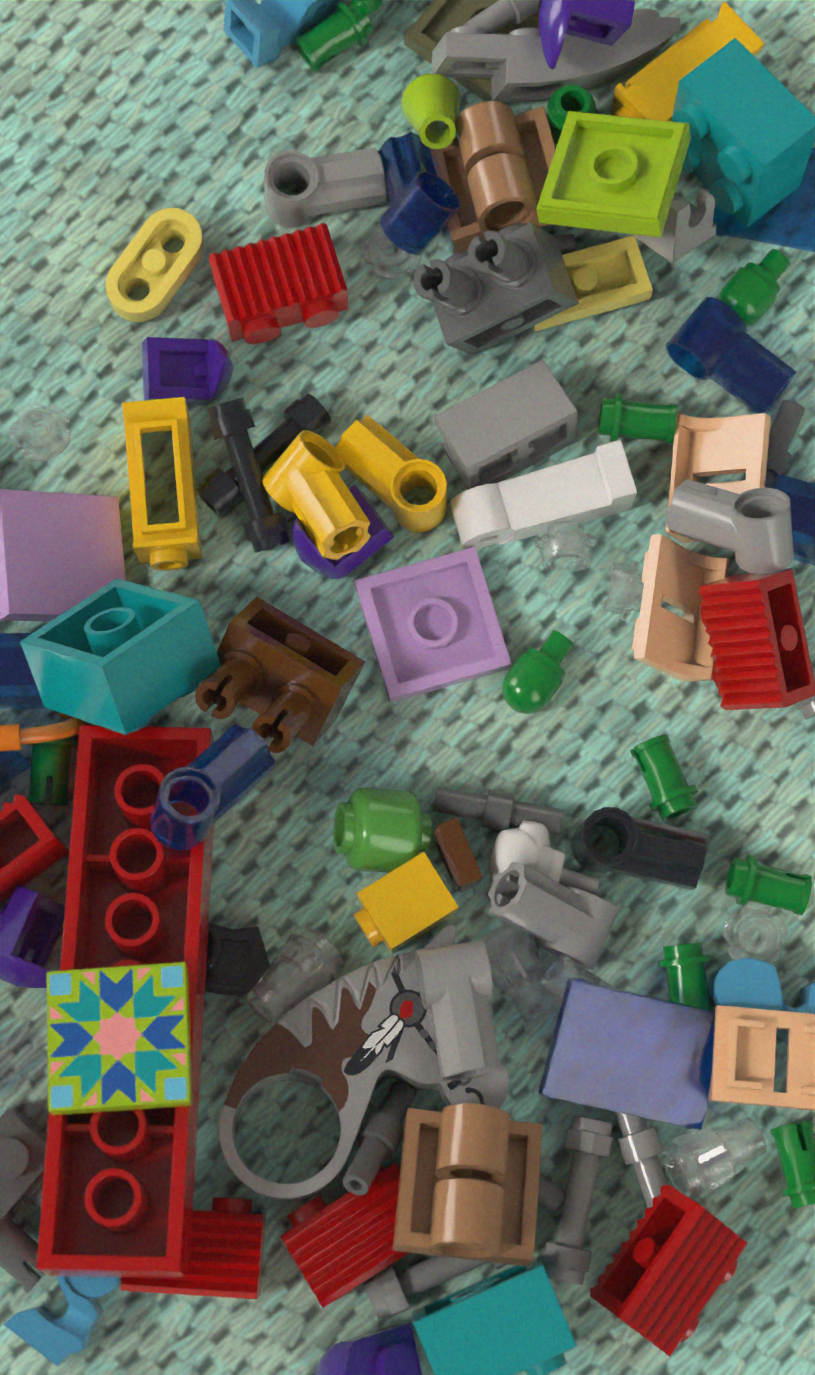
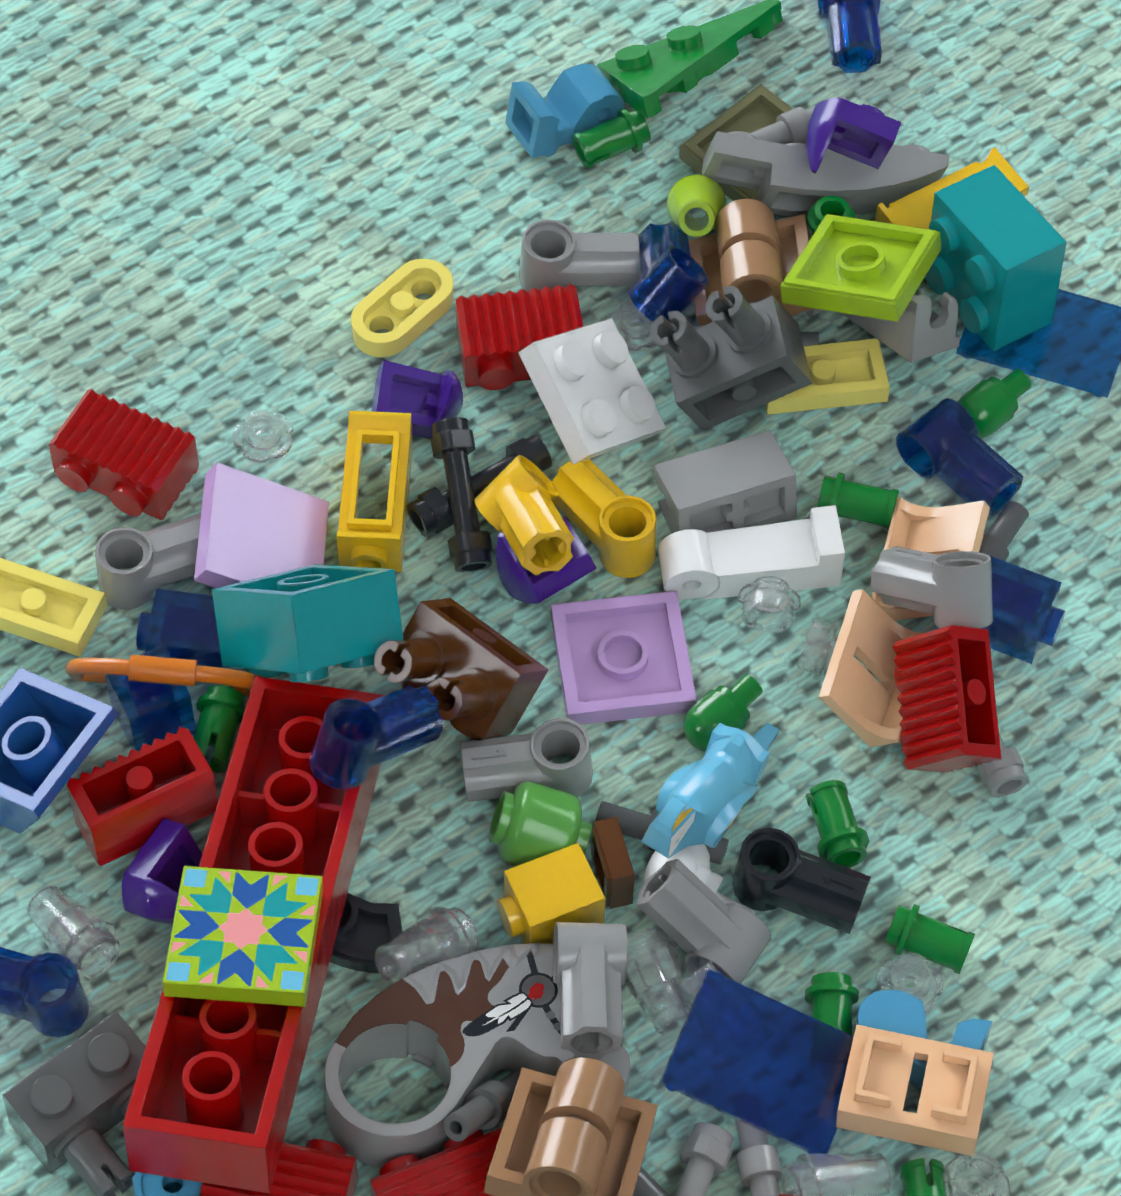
camera: 10 degrees right, 20 degrees down
(349, 762) = (507, 761): none -> light grey piece
(361, 345) = (592, 390): none -> white plate
(541, 774) = (710, 793): none -> medium azure animal

